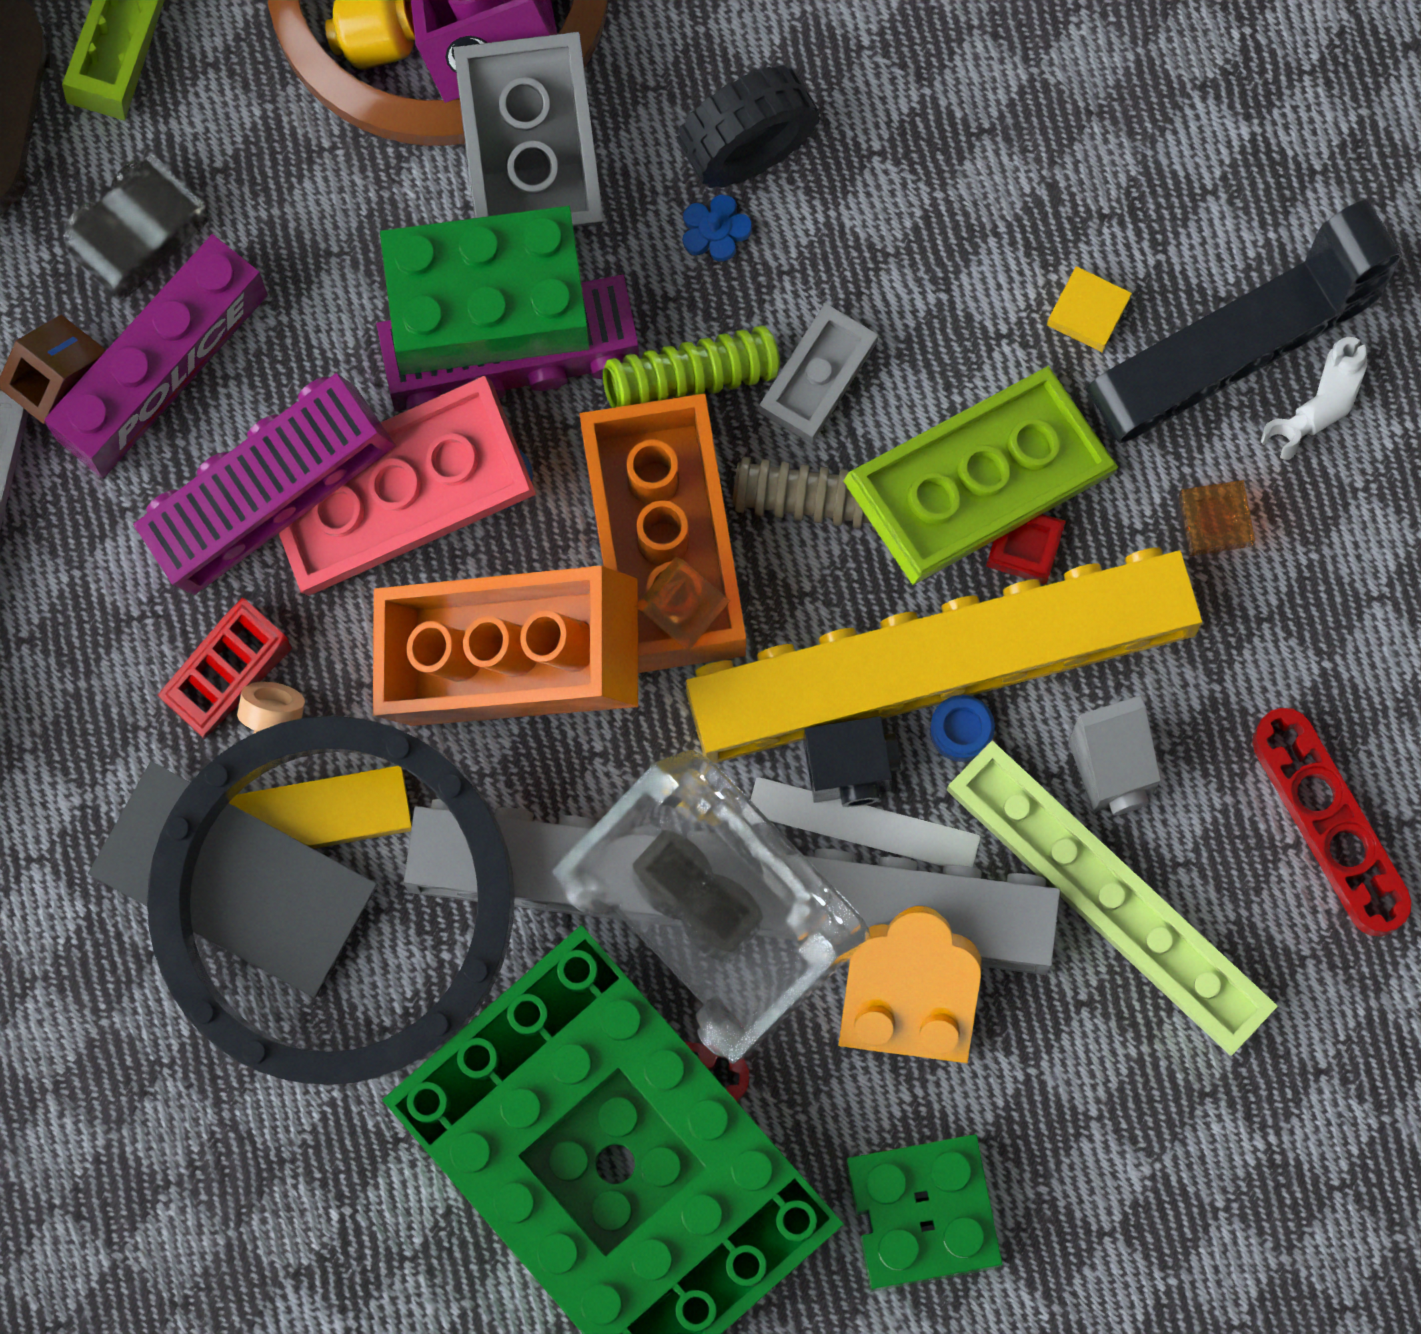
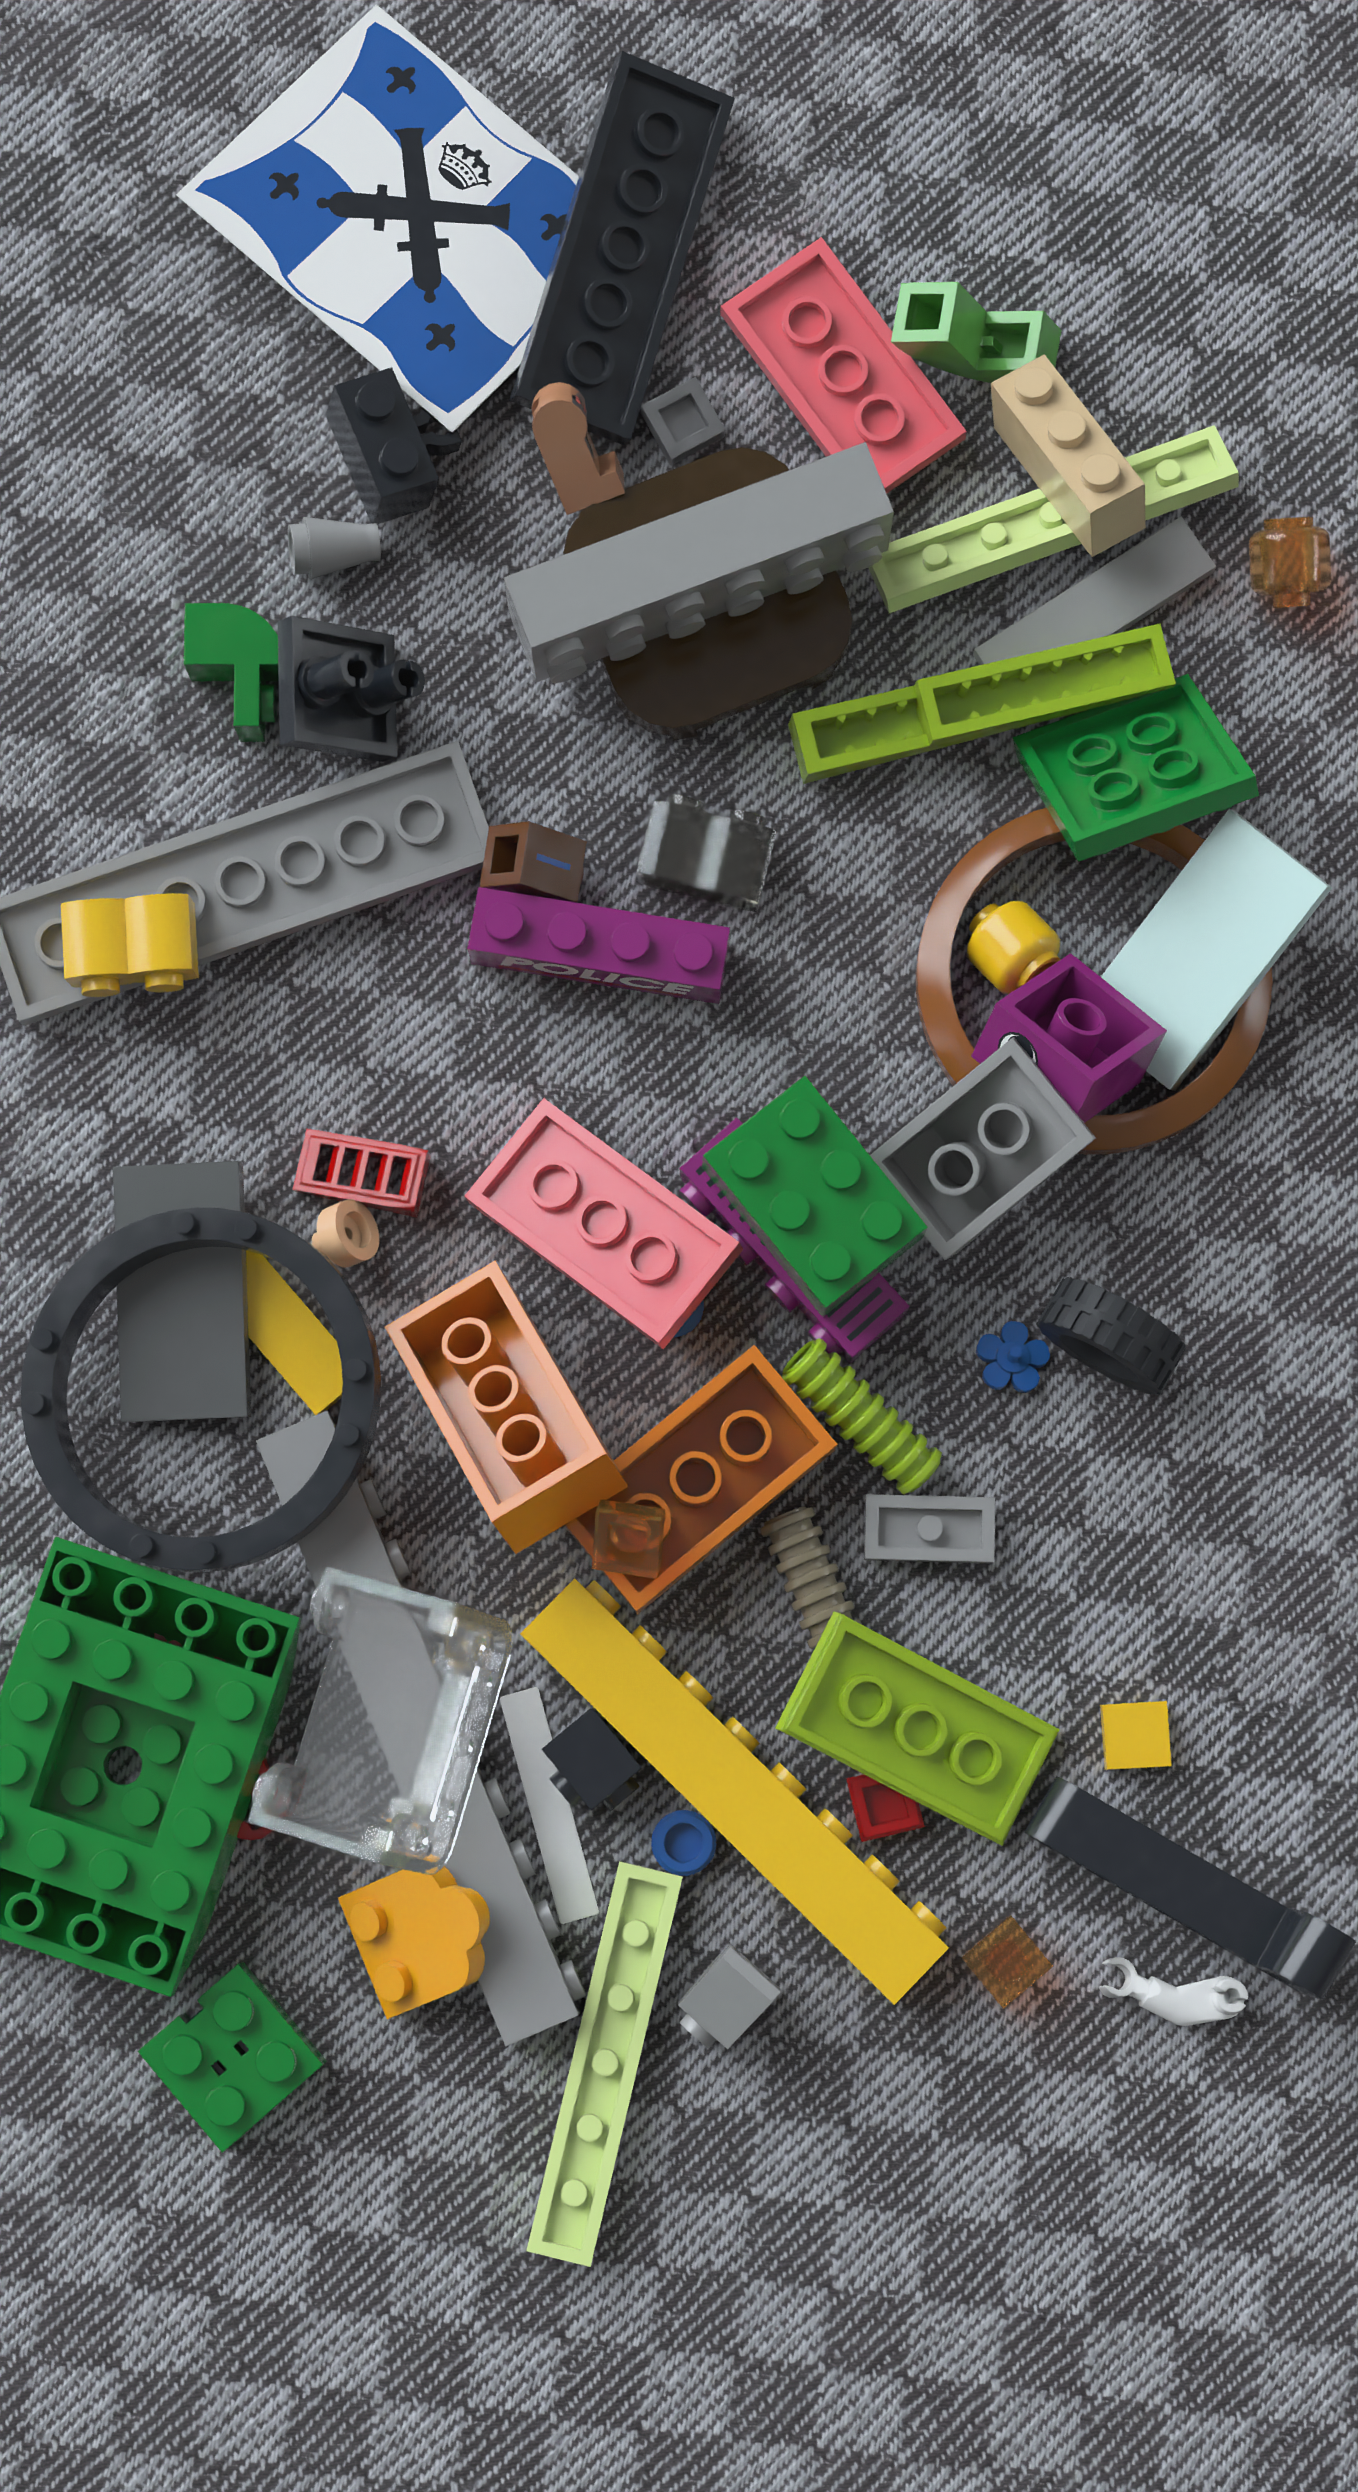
camera: 60 degrees right, 5 degrees up
(263, 483) = (534, 1108): magenta brick -> none
(680, 884) = (370, 1724): clear smoke brick -> none
(1340, 817) = (795, 2224): red beam -> none

